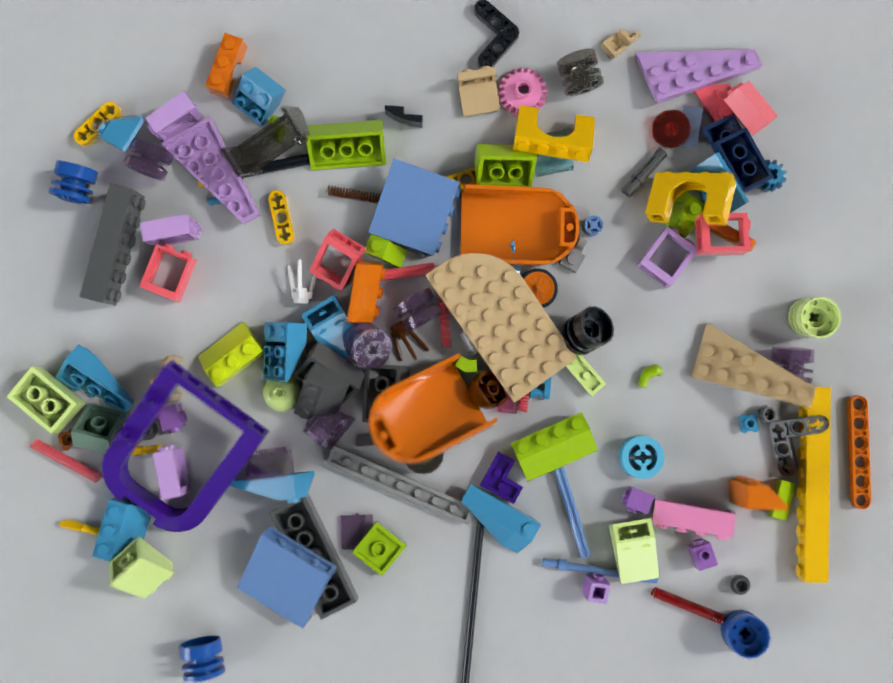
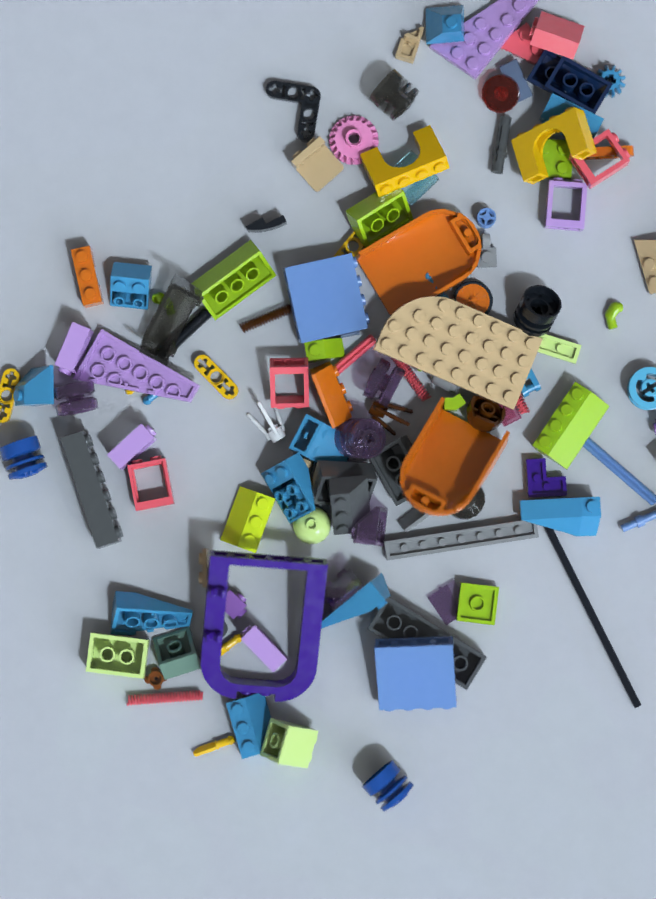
camera: 30 degrees left, 0 degrees up
(660, 42) = (445, 24): none -> dark azure slope

